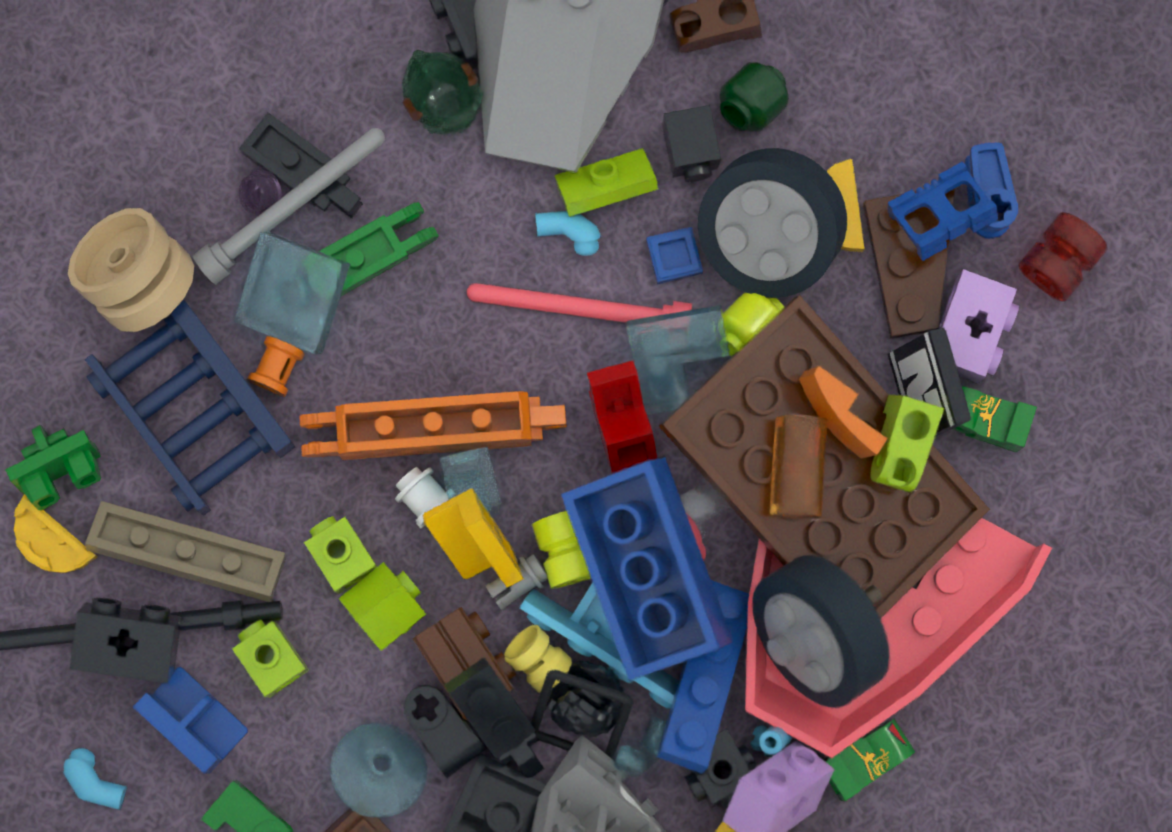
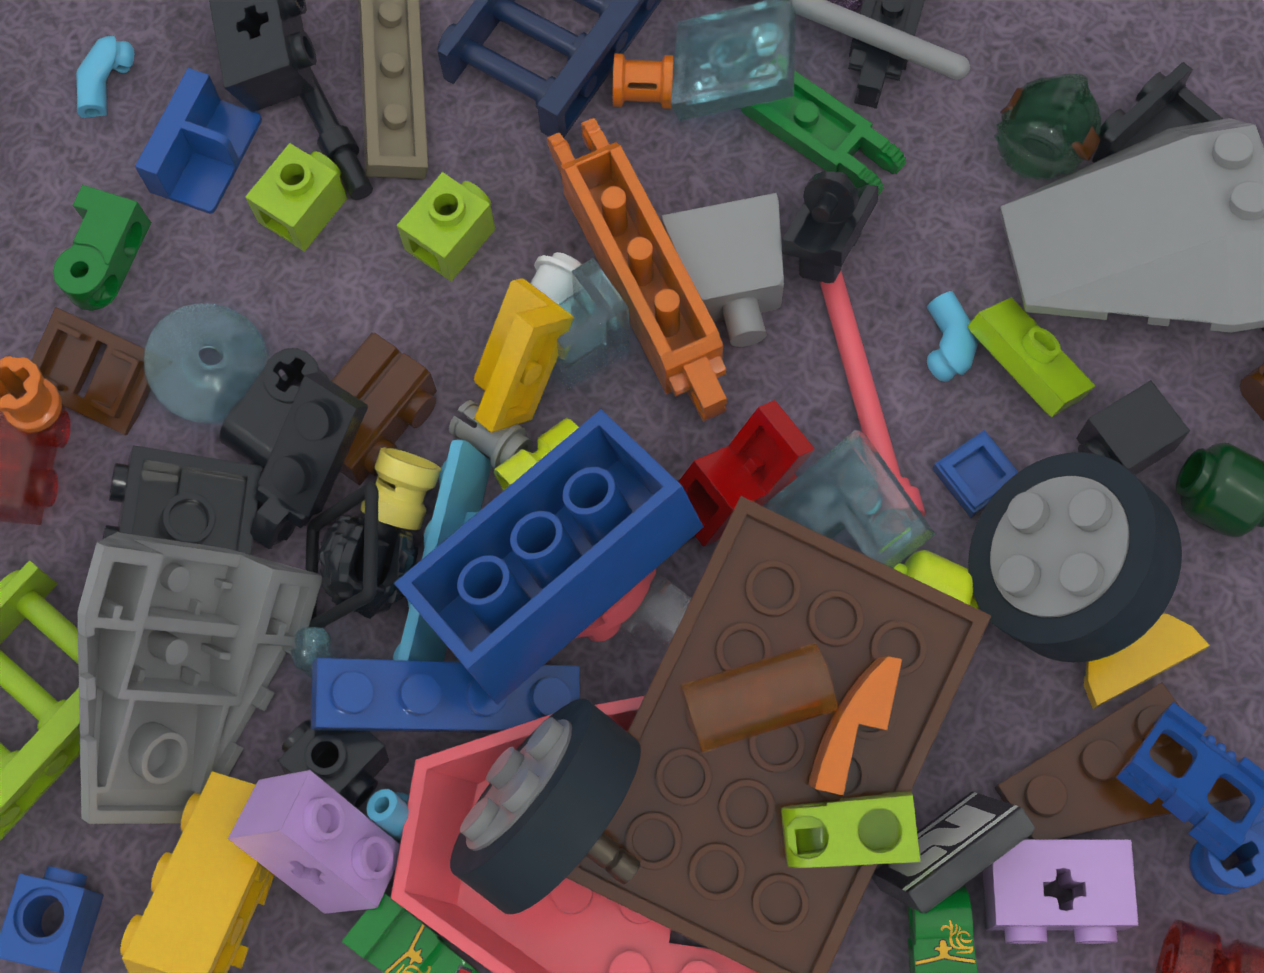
camera: 80 degrees right, 10 degrees down
(384, 605) = (401, 290): lime brick -> none
(456, 358) = (733, 261): none -> light grey torso
(458, 279) = (828, 224): none -> black hips

